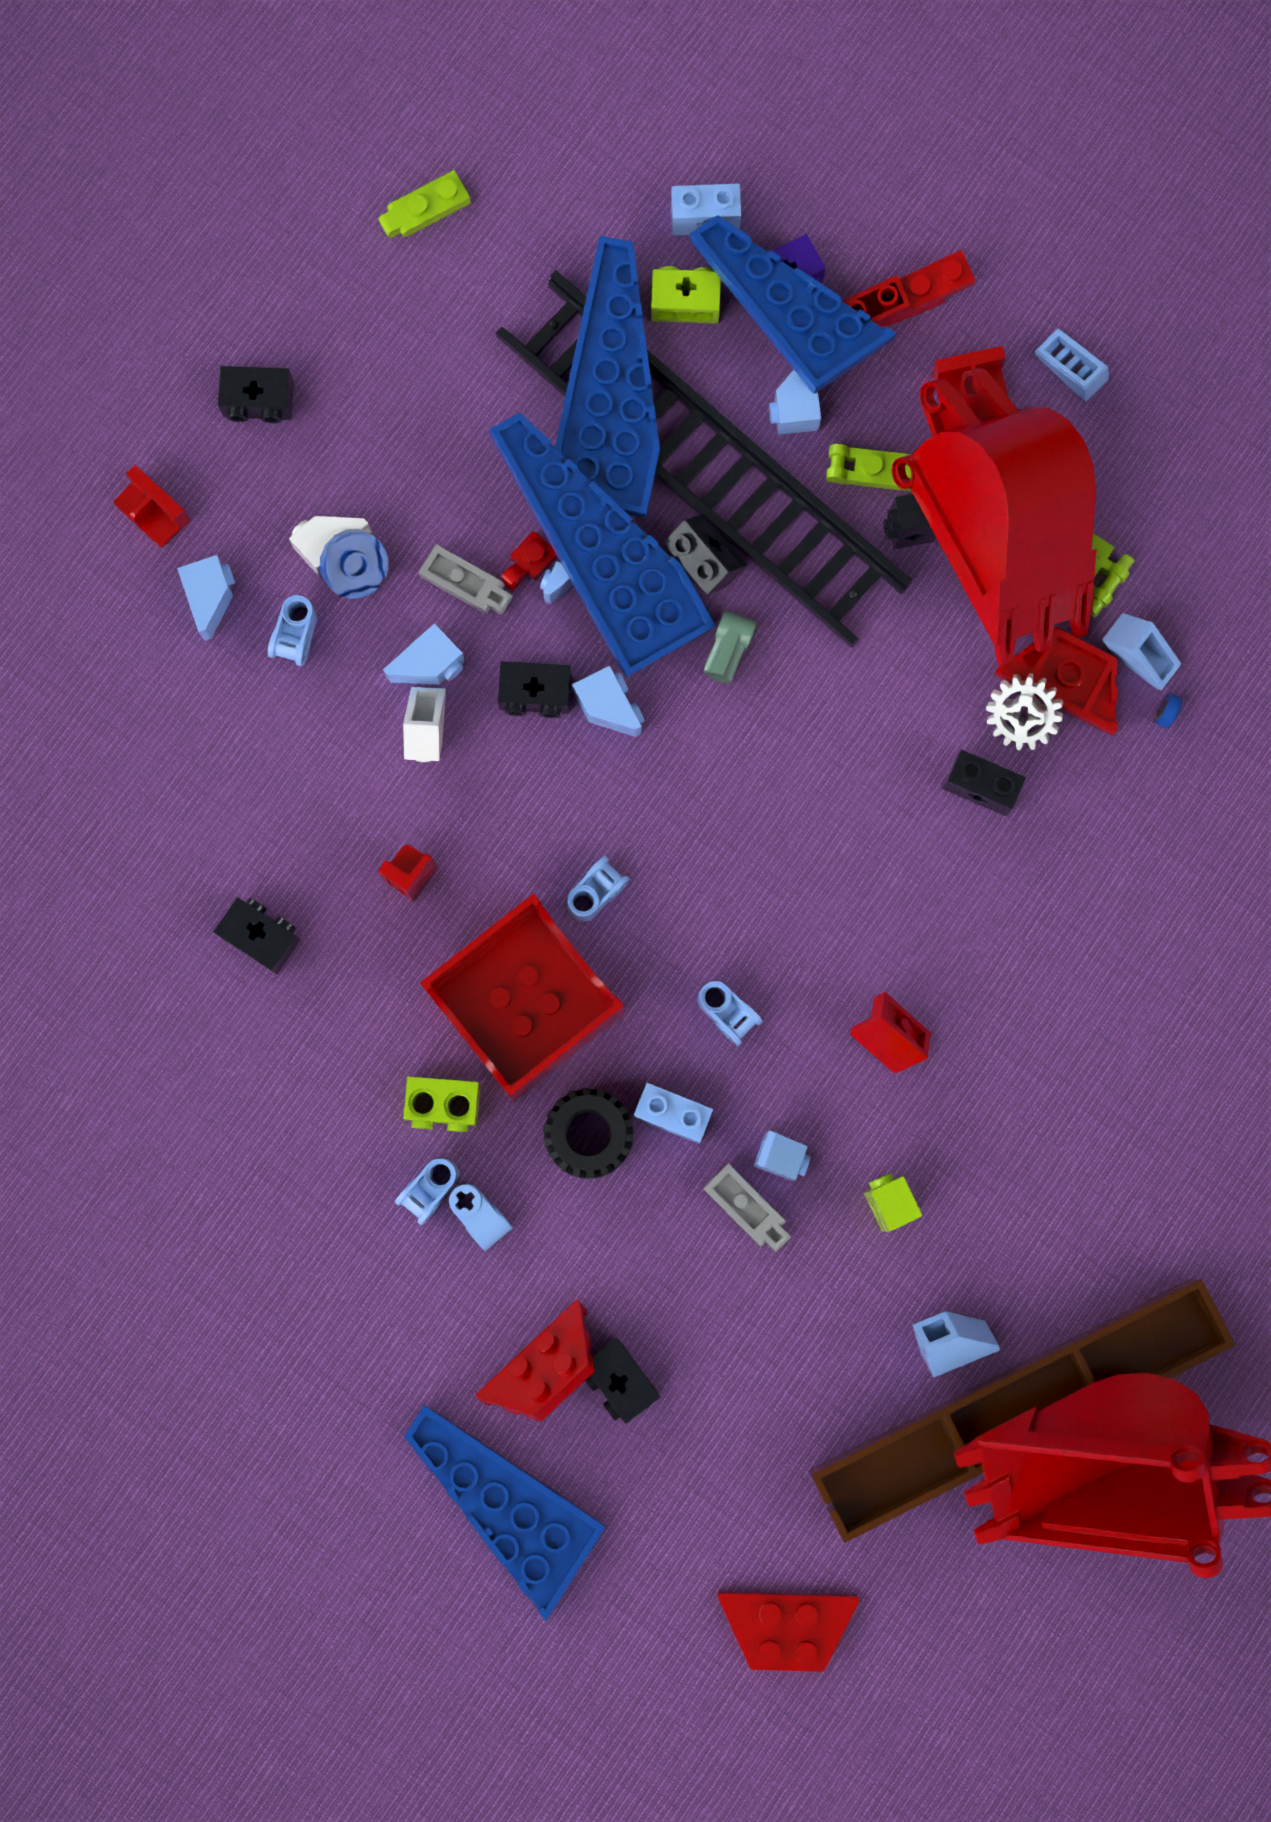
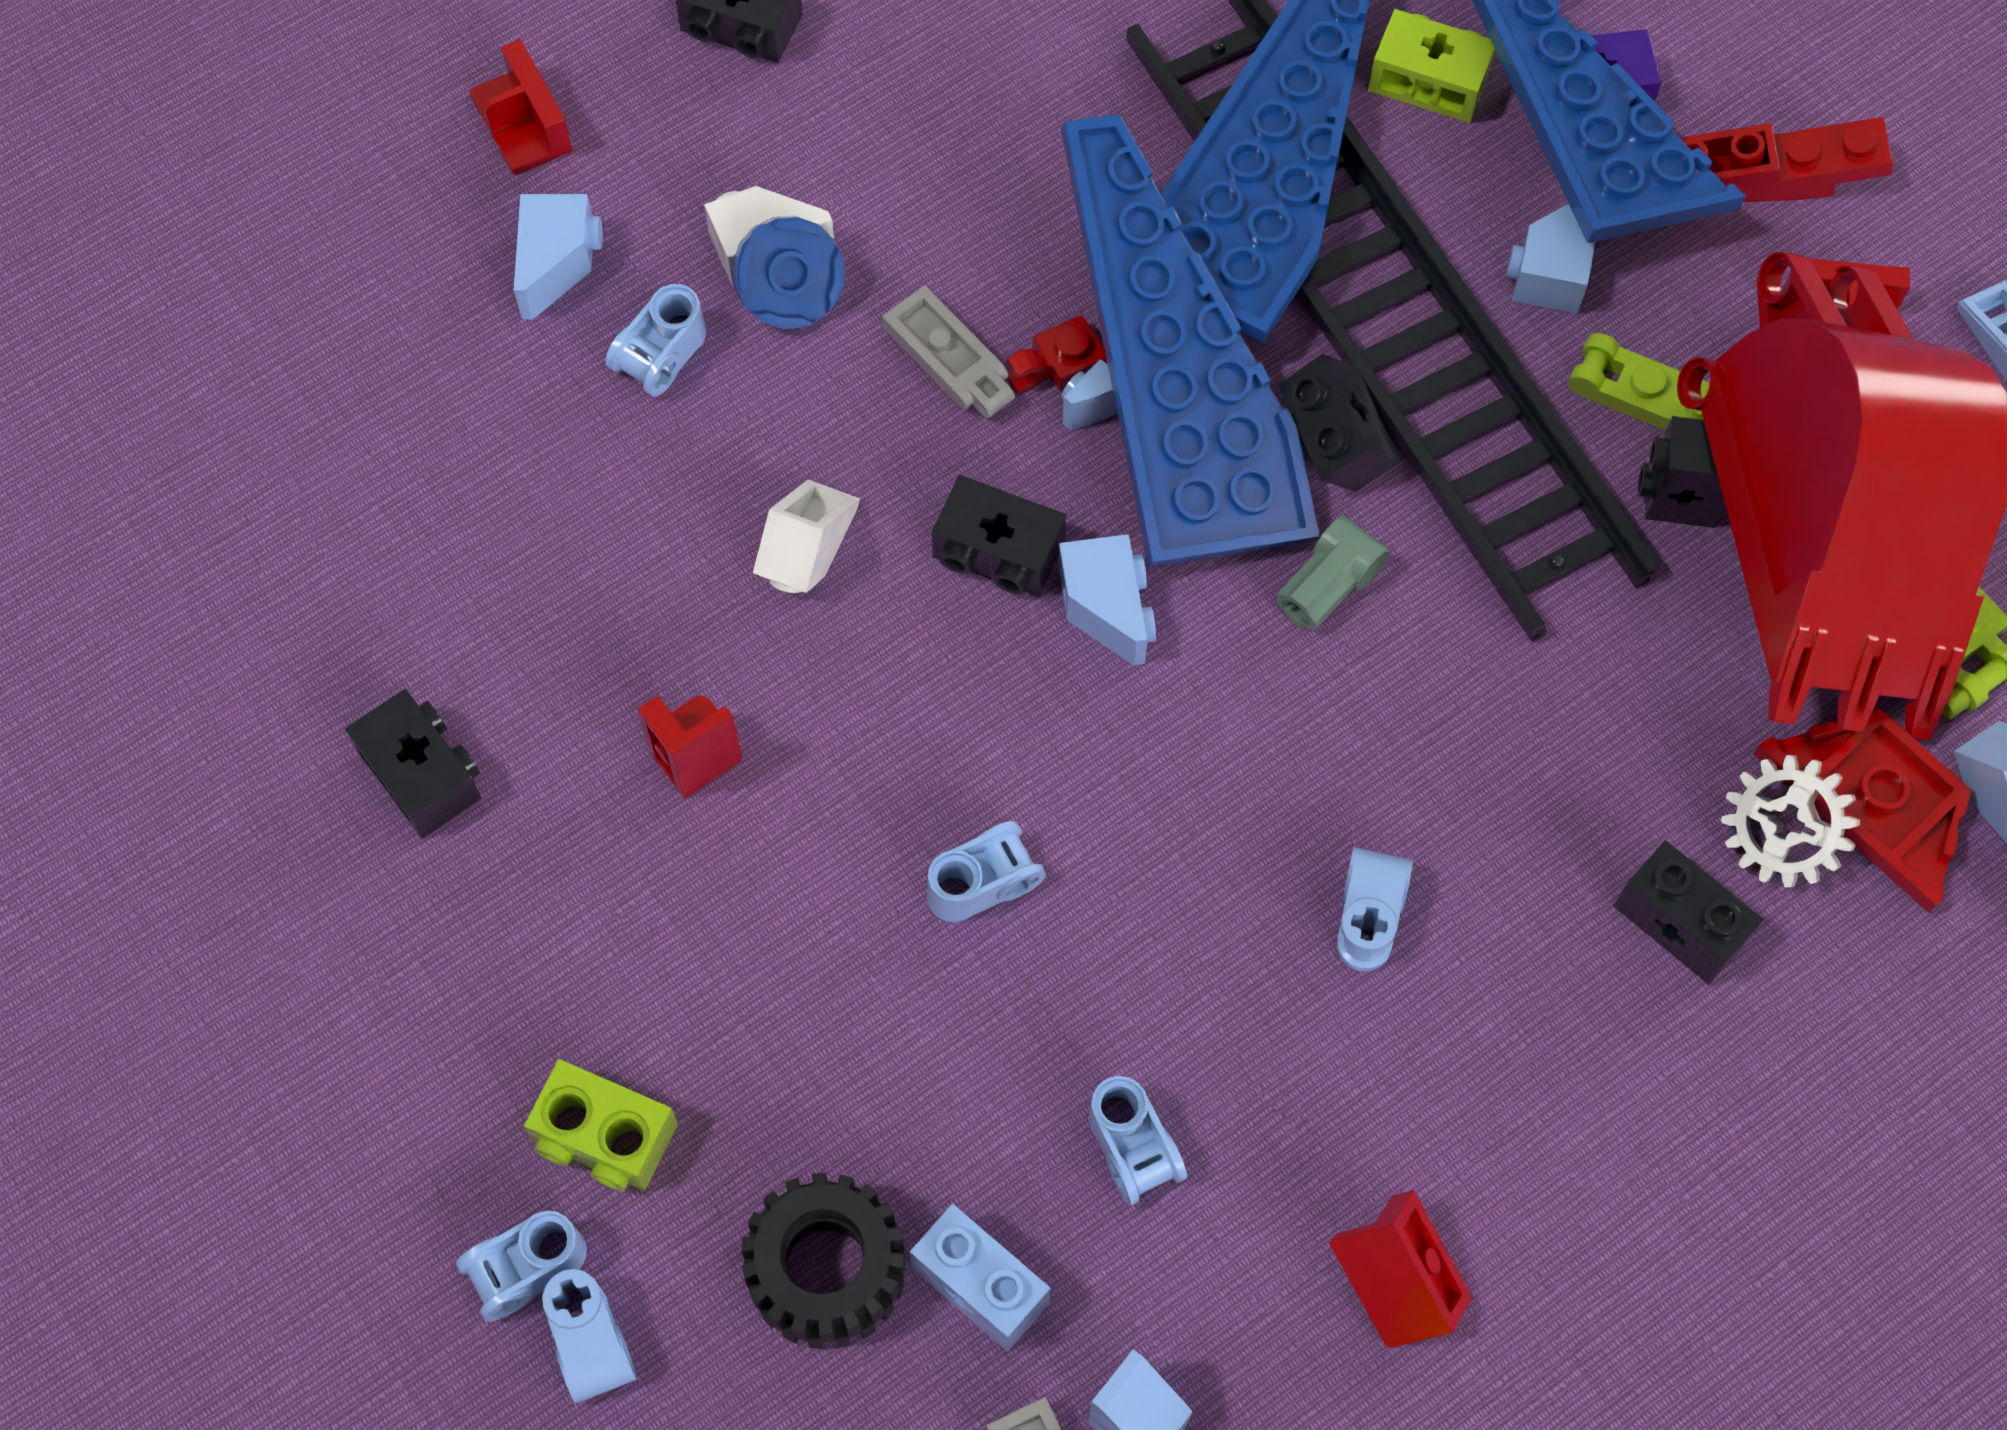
camera: 20 degrees right, 15 degrees down
(427, 660) = (844, 444): light blue slope -> none
(522, 997) = (797, 995): red container -> none
(813, 830) = (1373, 902): none -> light blue piece

